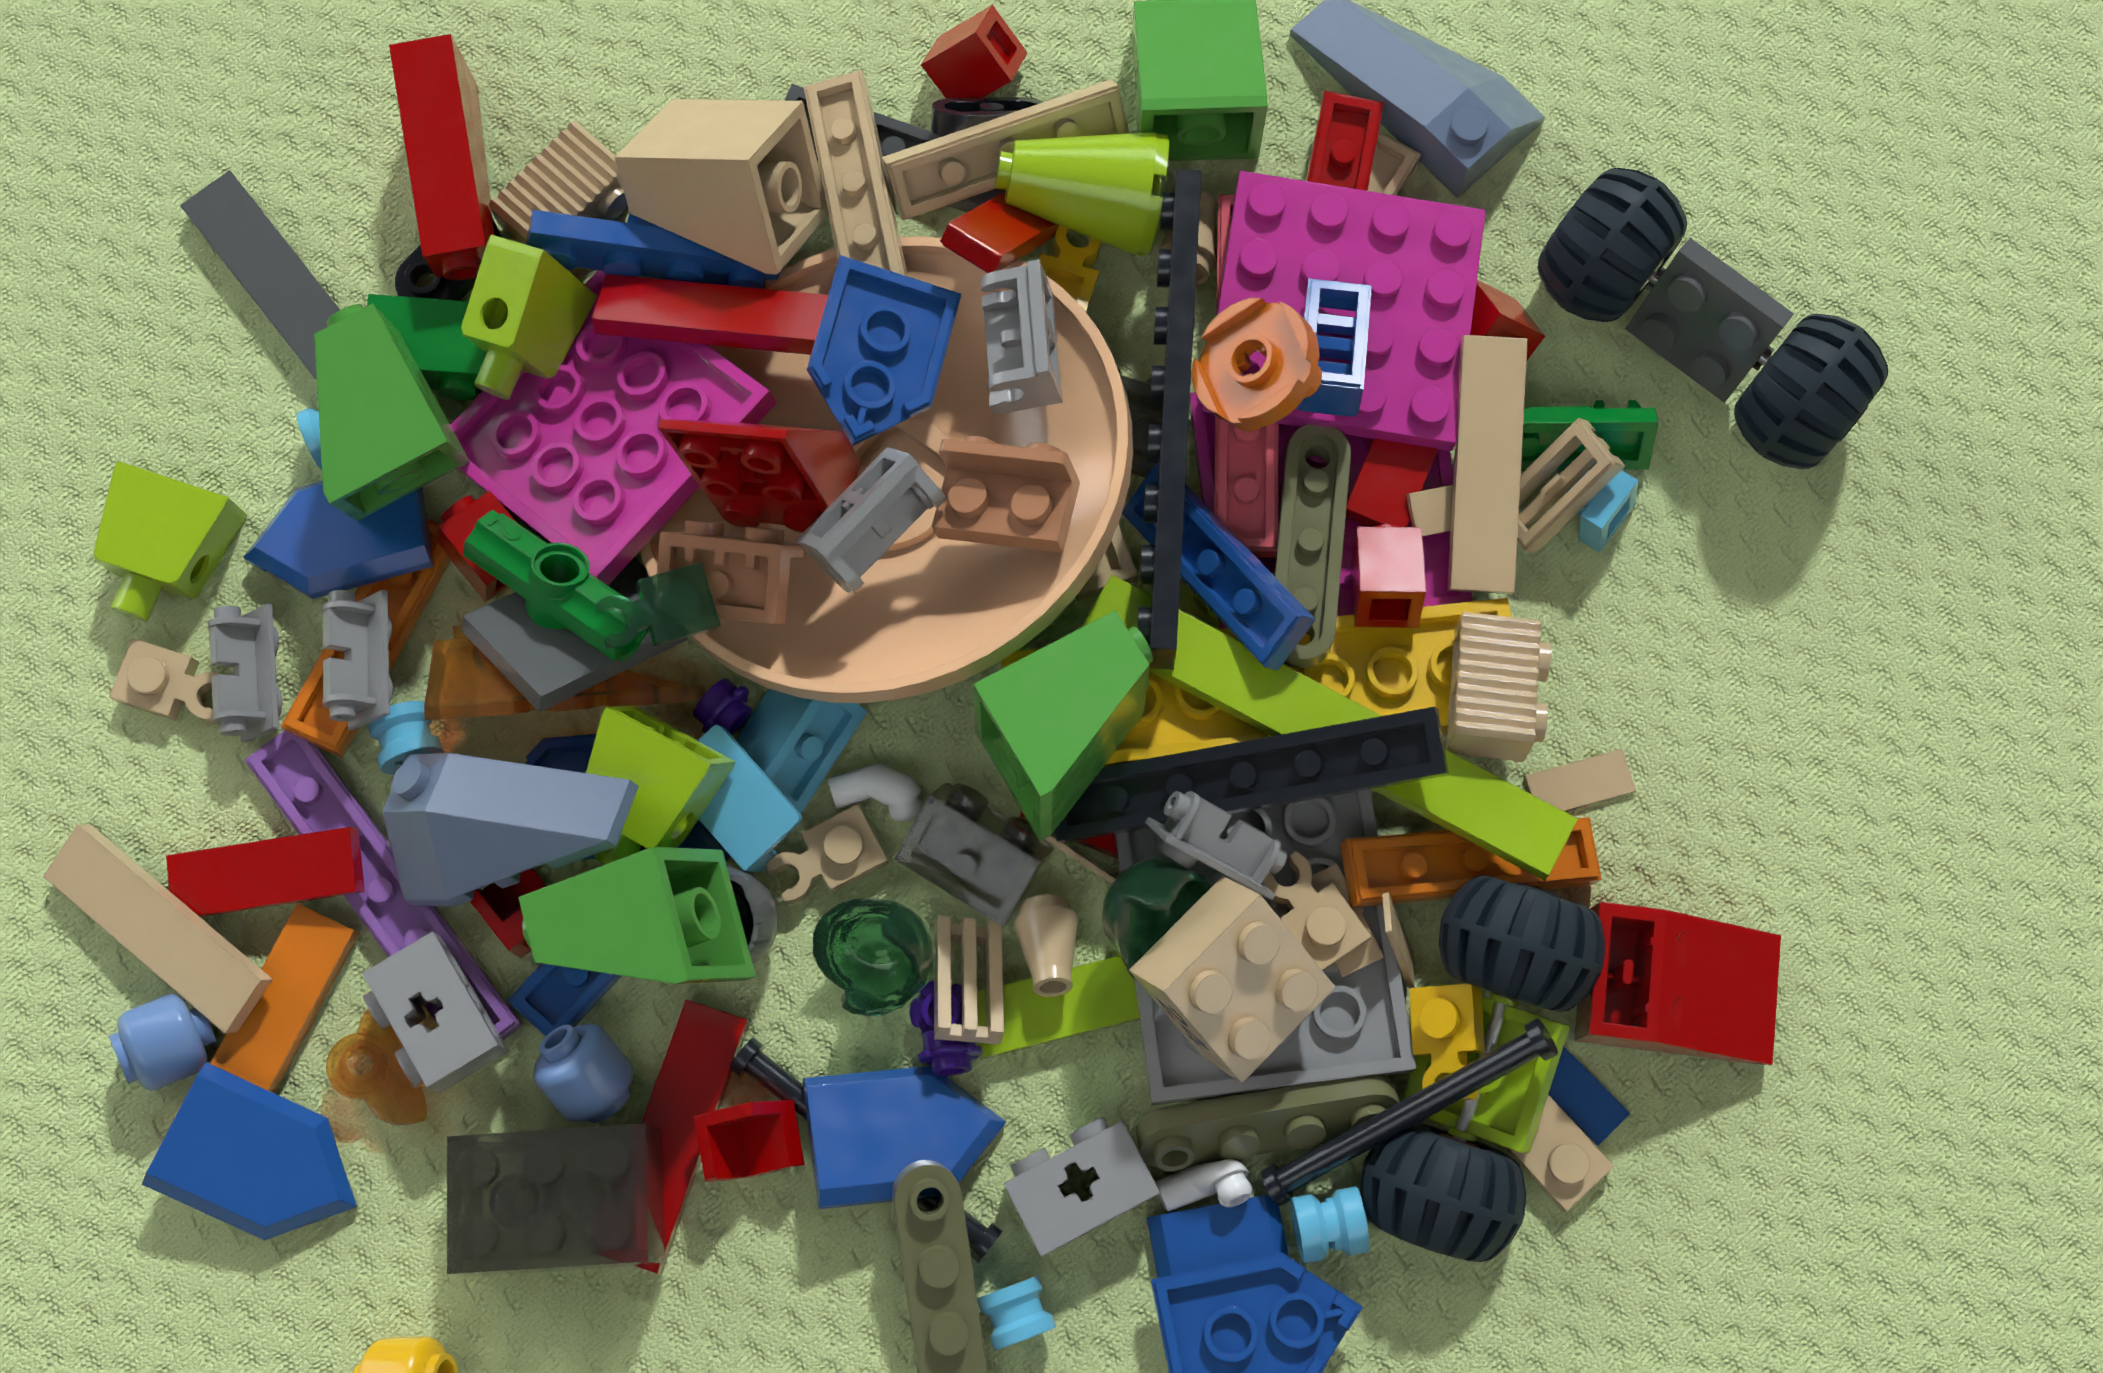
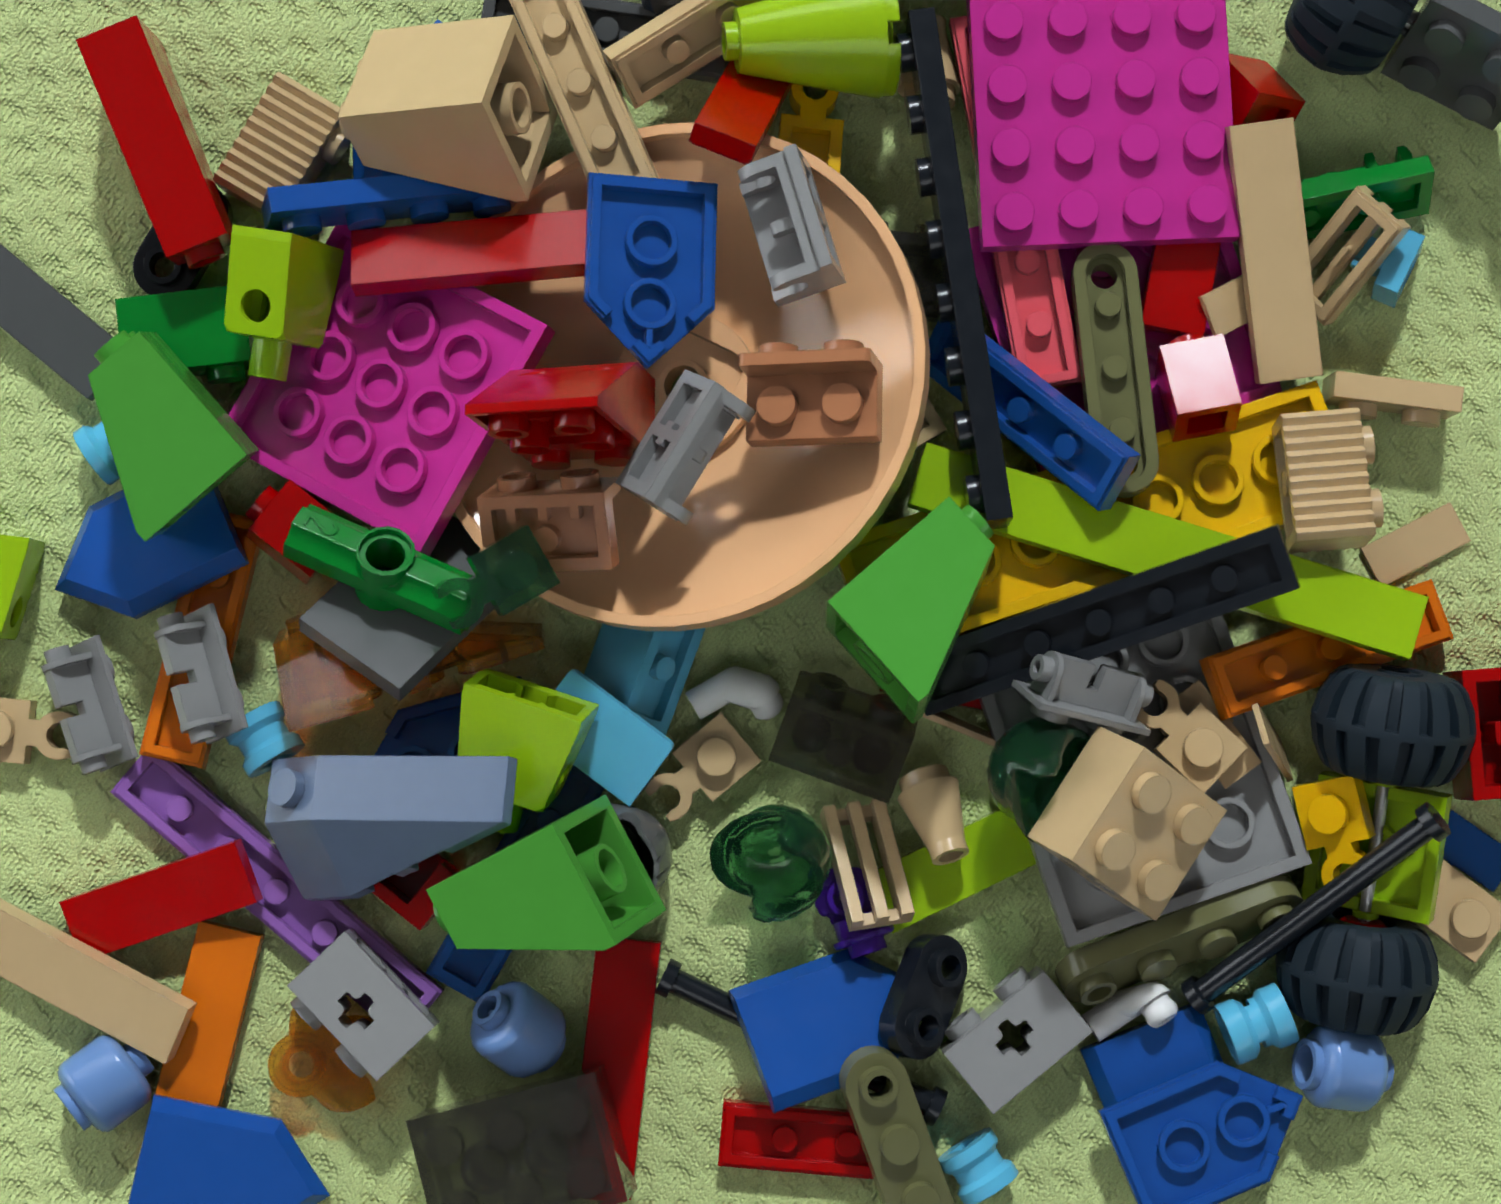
camera: 15 degrees left, 10 degrees up
(723, 706) = (568, 645): dark purple plate -> none
(749, 1140) = (691, 1060): red panel -> none
(832, 1247) = (791, 1140): none -> red tile
(996, 1119) = (923, 991): none -> black plate
(1281, 383) = (1066, 216): orange plate -> none
(1340, 383) = (1110, 206): blue slope -> none
(1409, 1289) = (1342, 1069): none -> medium blue head
(1604, 640) = (1418, 401): none -> tan plate

